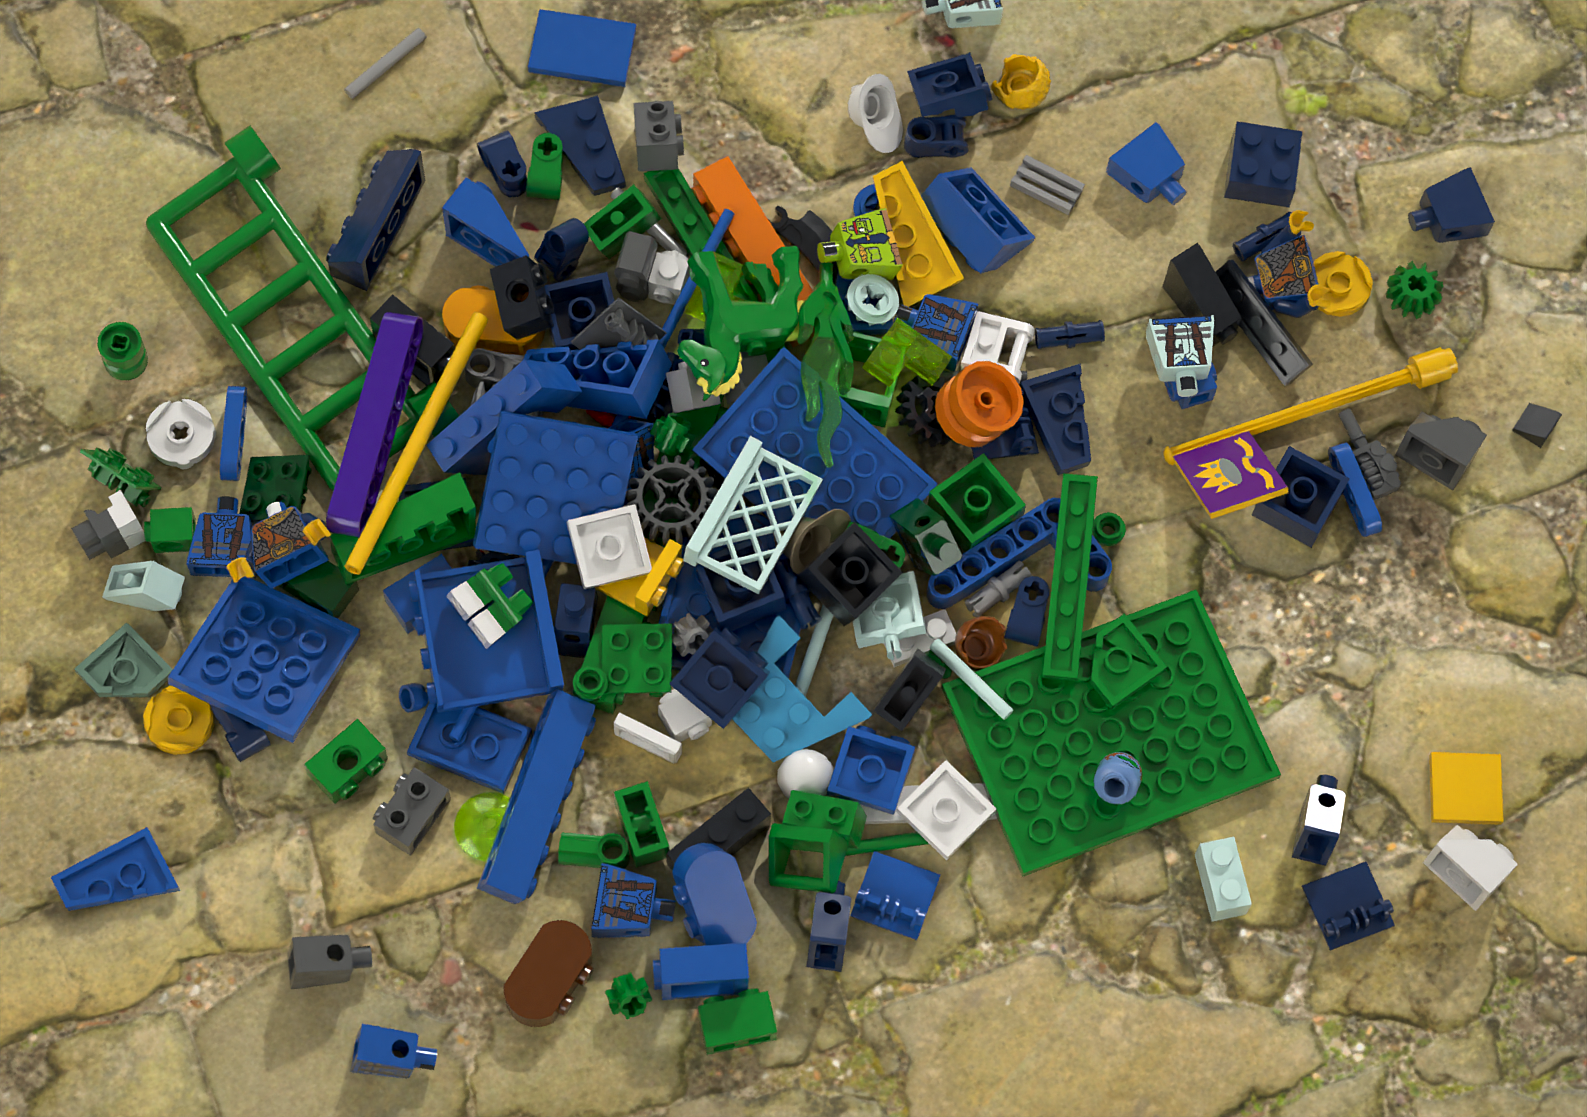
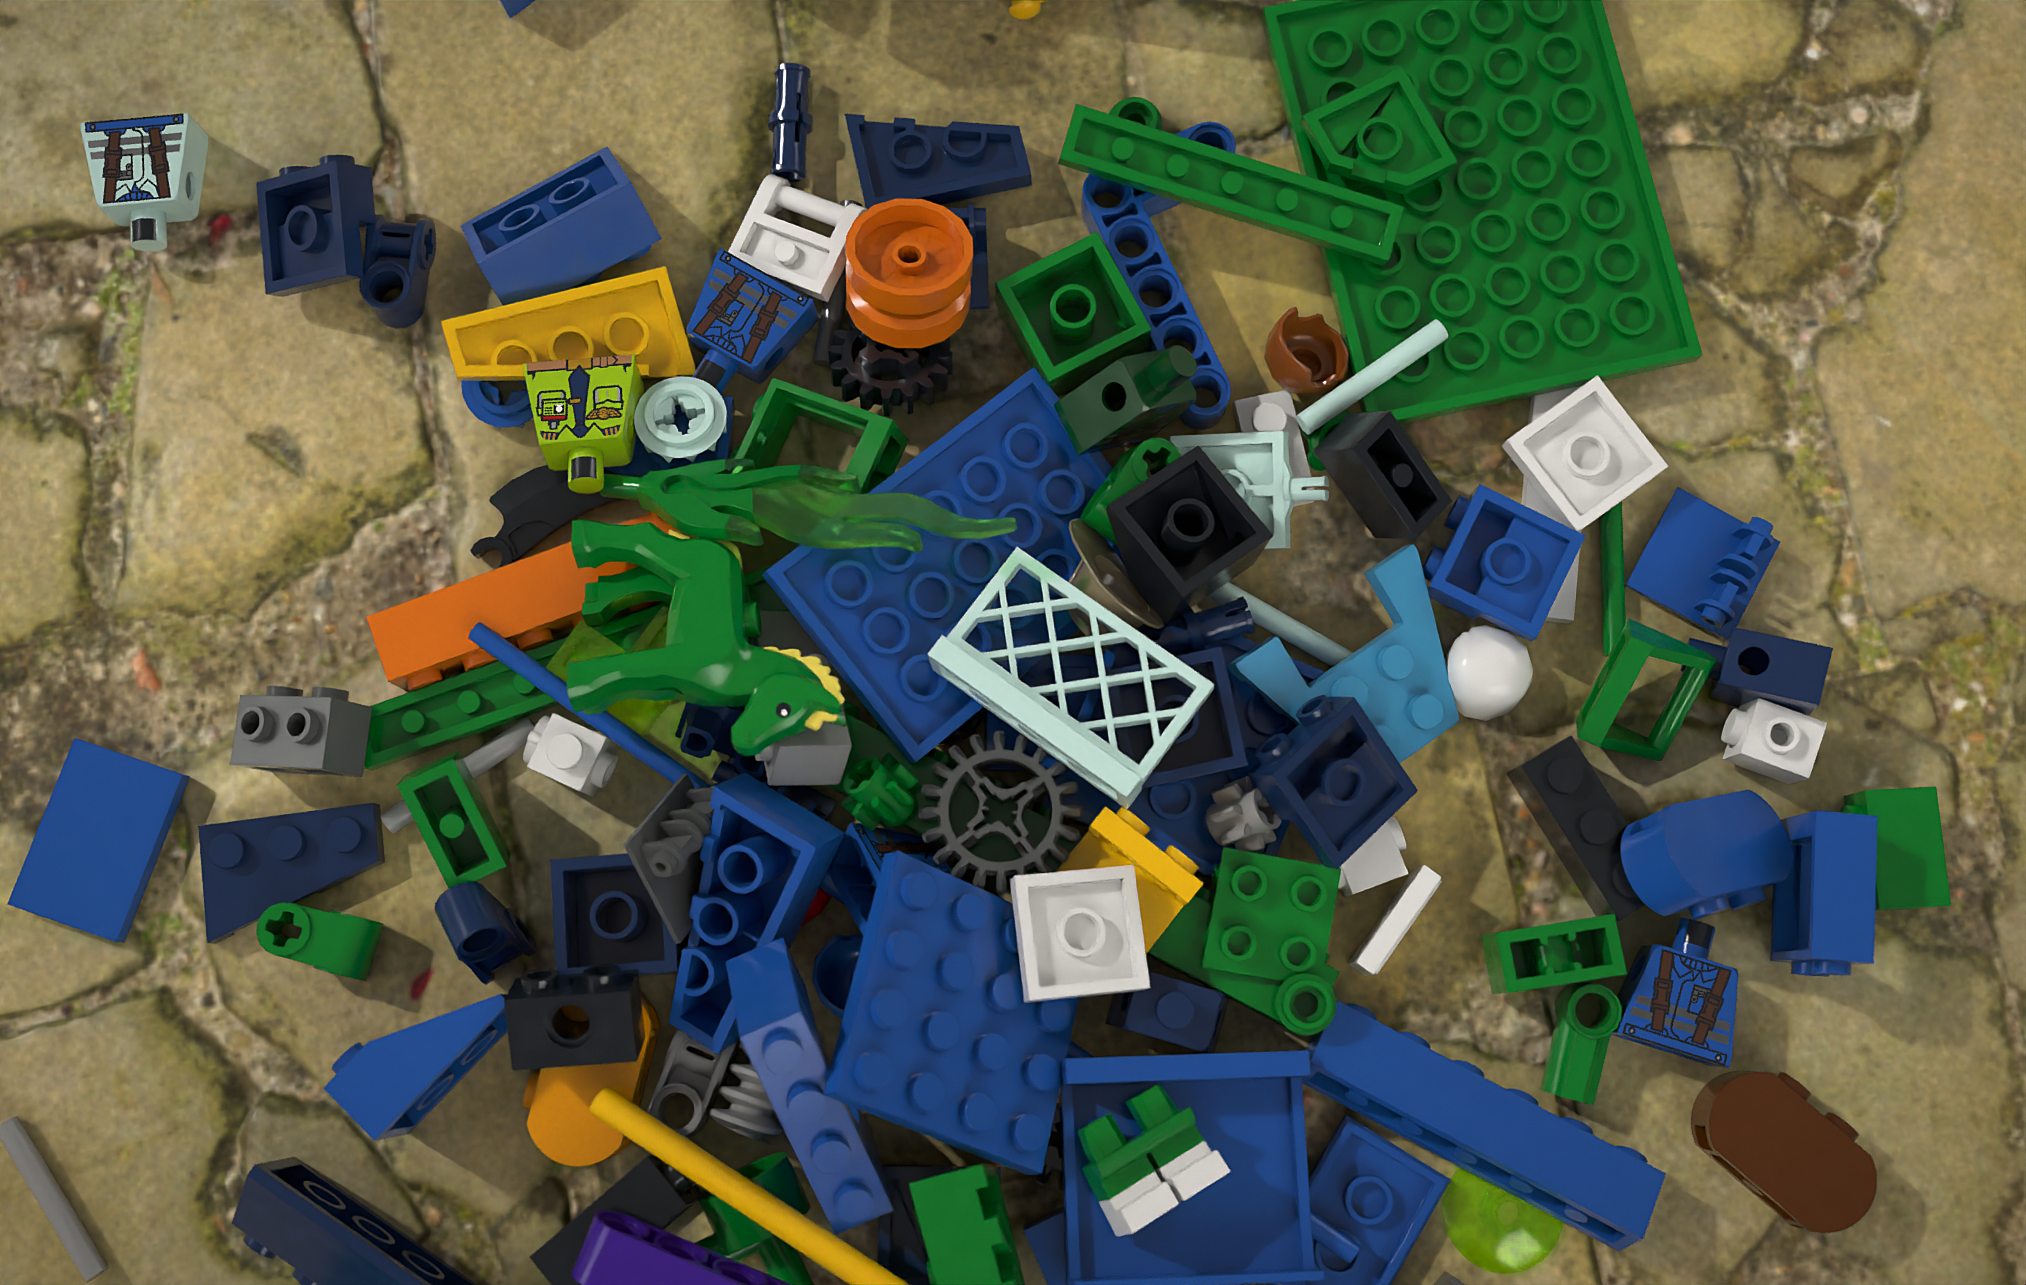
camera: 75 degrees left, 10 degrees up
(504, 161) = (289, 1010): dark blue piece -> none
(628, 995) = (1837, 1021): green gear -> none
(635, 266) = (544, 807): dark grey brick -> none
(790, 938) = (1772, 740): none -> white brick
(828, 813) = (1581, 651): green brick -> none
(876, 110) = (330, 357): white piece -> none
(907, 348) = (786, 382): clear neon green plate -> none
(997, 589) = (1214, 314): light grey pin -> none
(1023, 82) = (327, 109): yellow hair -> none
(1028, 616) = (1268, 271): dark blue piece -> none
(1051, 174) = (502, 97): light grey tile -> none
(1118, 778) = (1584, 174): medium blue head -> none
(1222, 879) = (1743, 58): light aqua brick -> none

